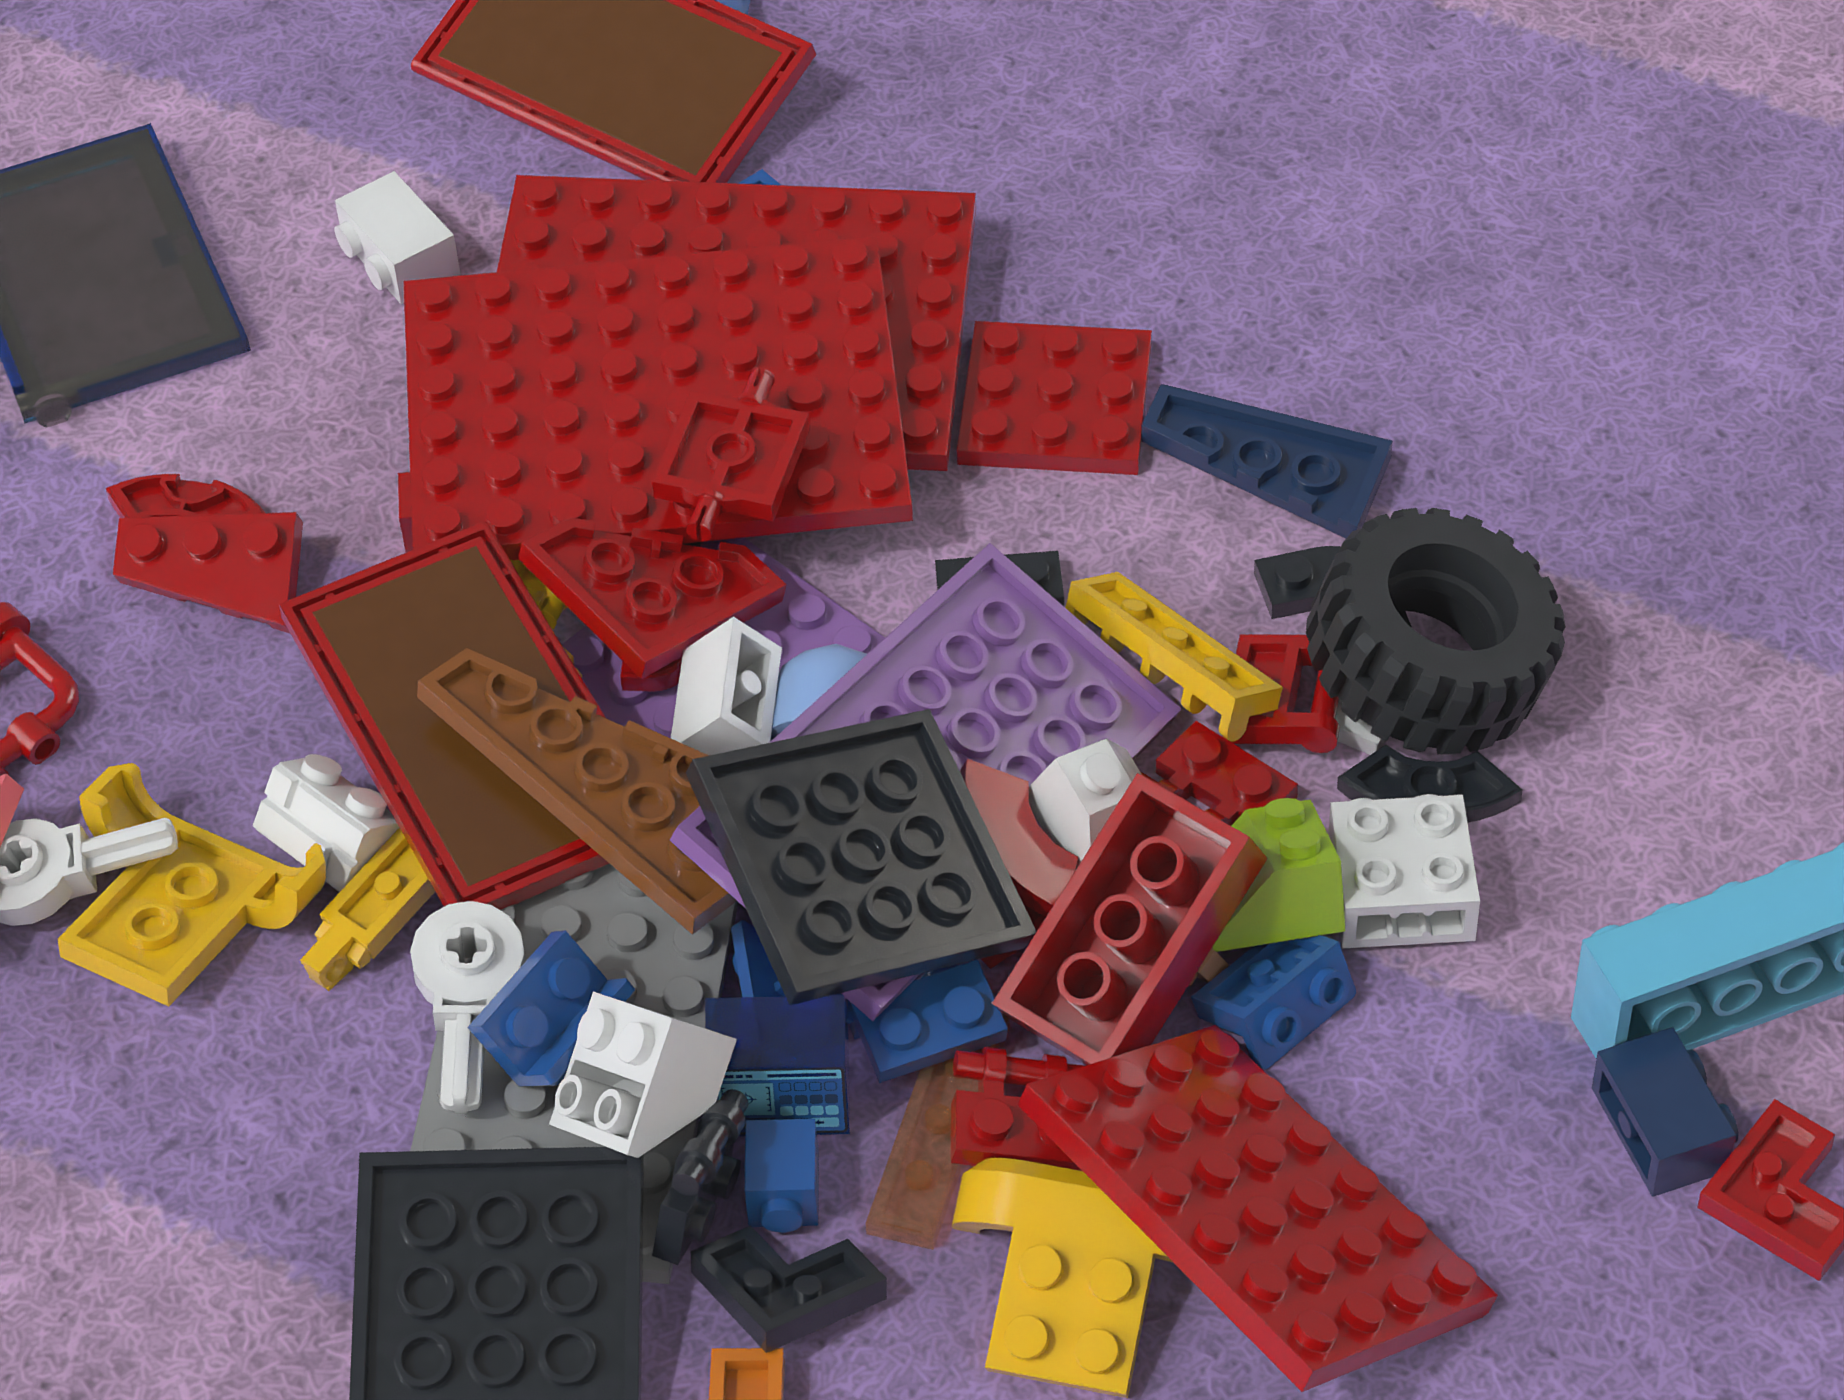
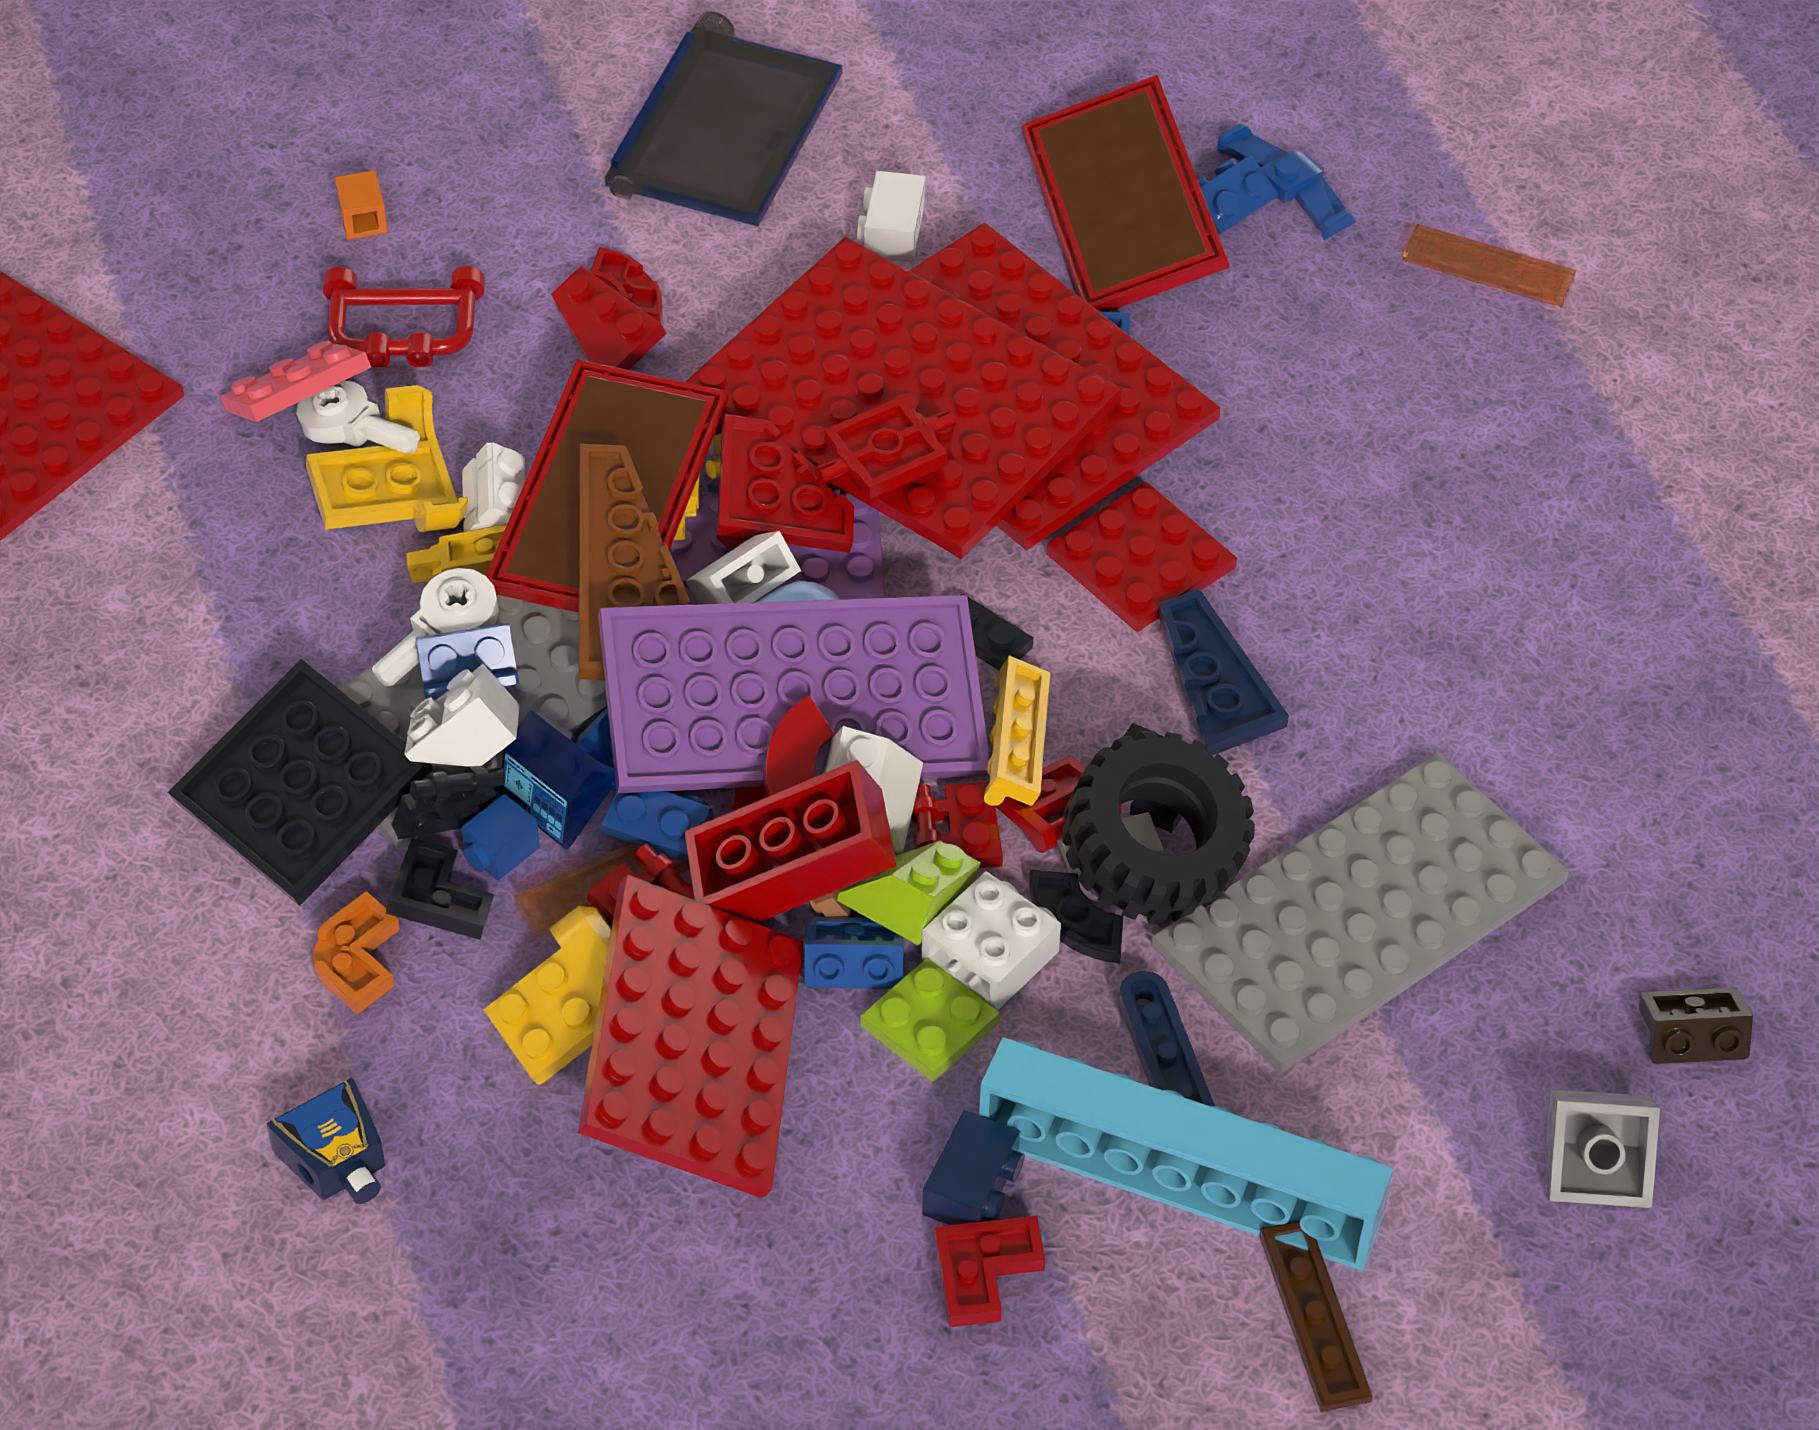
camera: 40 degrees right, 0 degrees up
(859, 855) = (686, 697): black plate -> none
(1425, 1000) = (930, 1019): none -> lime plate
(1662, 837) = (1161, 1037): none -> dark blue plate
(1672, 580) = (1359, 911): none -> light grey plate

